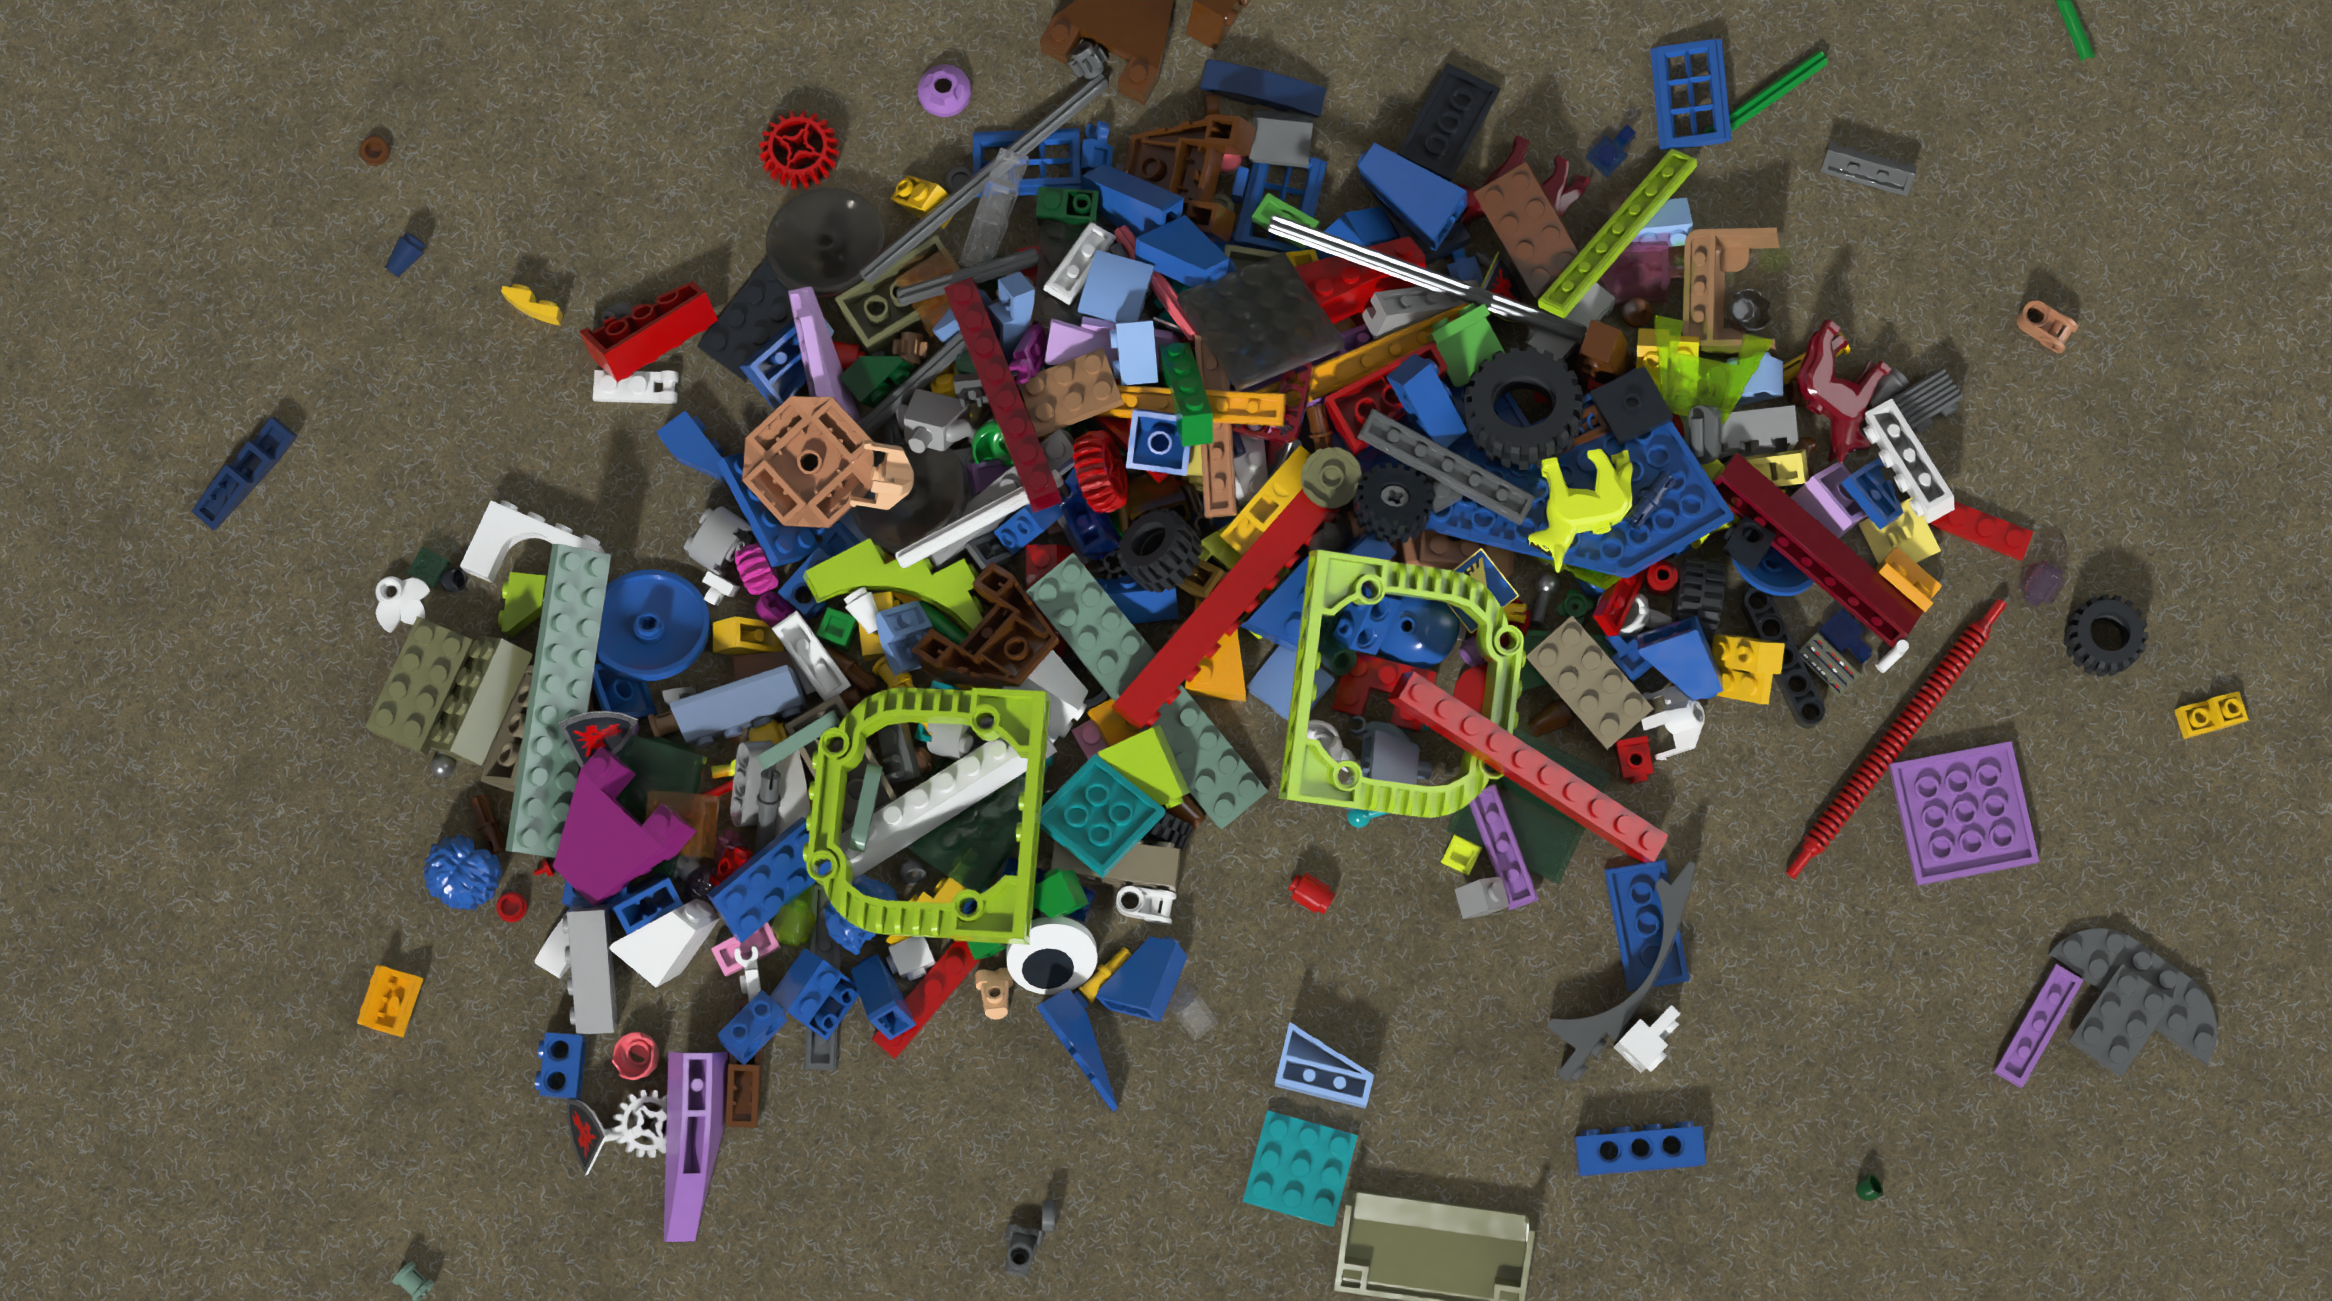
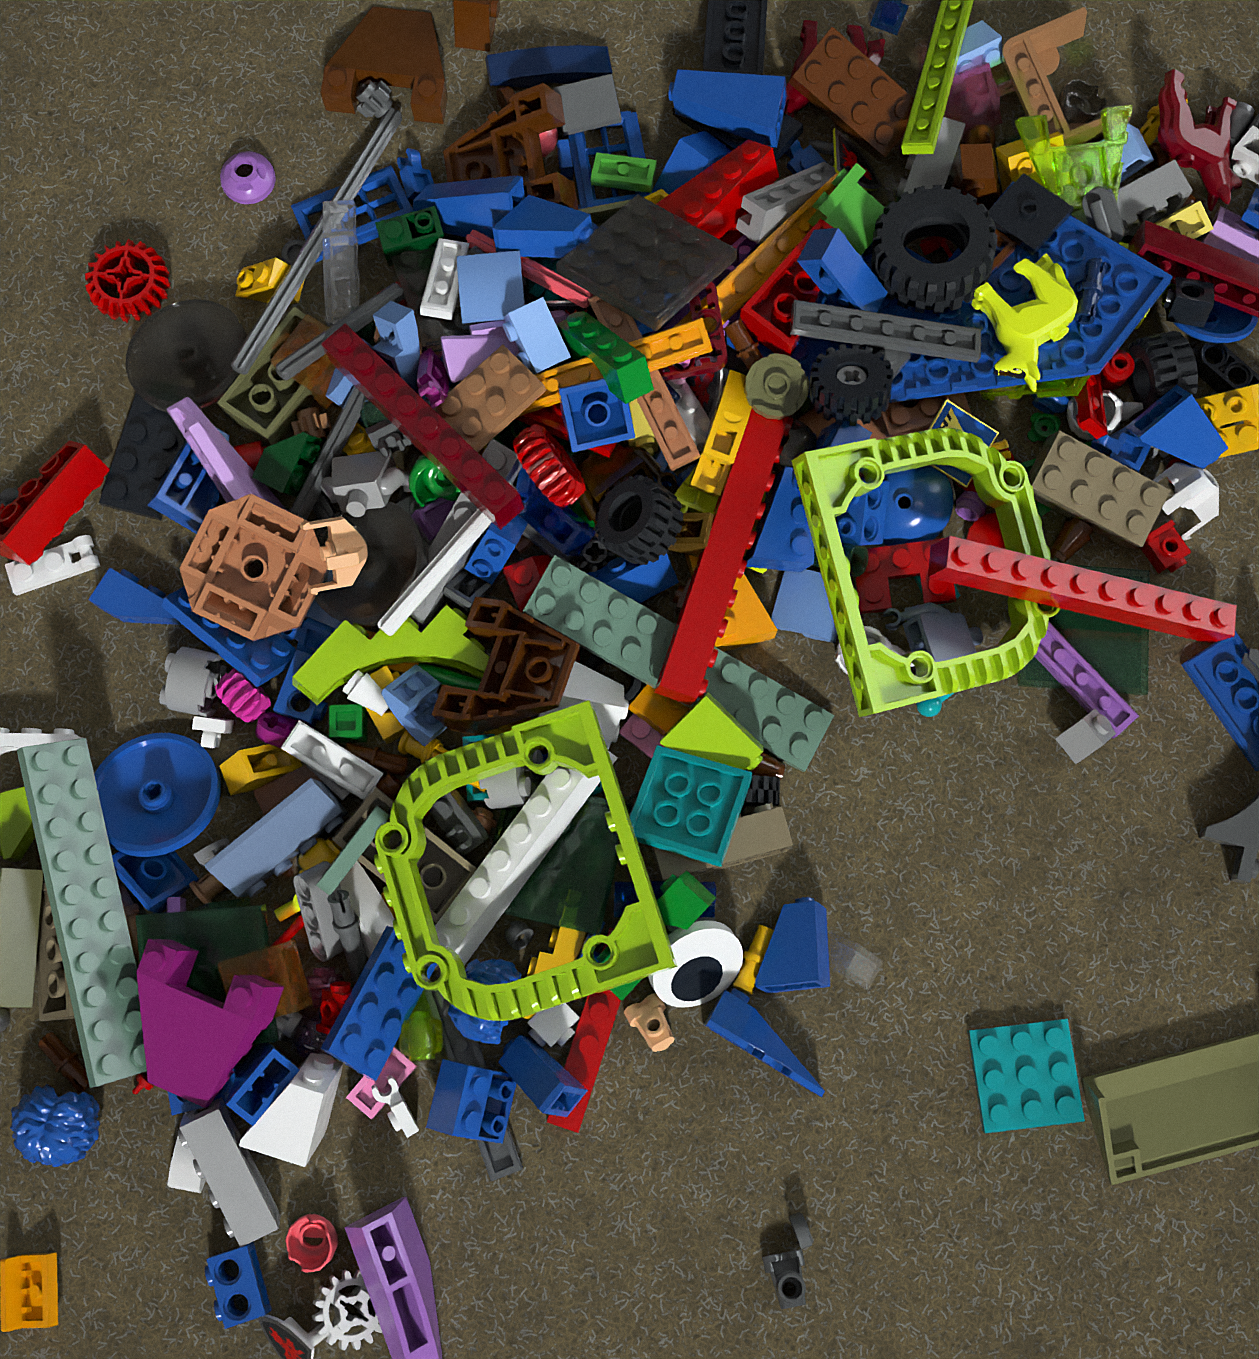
camera: 30 degrees left, 0 degrees up
(511, 907) = (123, 1137): red plate -> none
(595, 729) = (136, 923): shield -> none
(744, 1085) = (429, 1202): reddish brown slope -> none
(752, 1027) = (422, 1165): blue brick -> none
(865, 807) = (450, 892): sand green beam -> none
(1148, 904) = (769, 871): white piece -> none
(1311, 893) = (919, 797): red brick -> none
(1320, 1071) = (1005, 970): light blue wedge -> none
(1426, 278) = (781, 165): dark grey axle -> none
(1461, 854) = (1043, 703): neon yellow tile -> none
(1547, 585) = (1008, 419): flat silver bar -> none

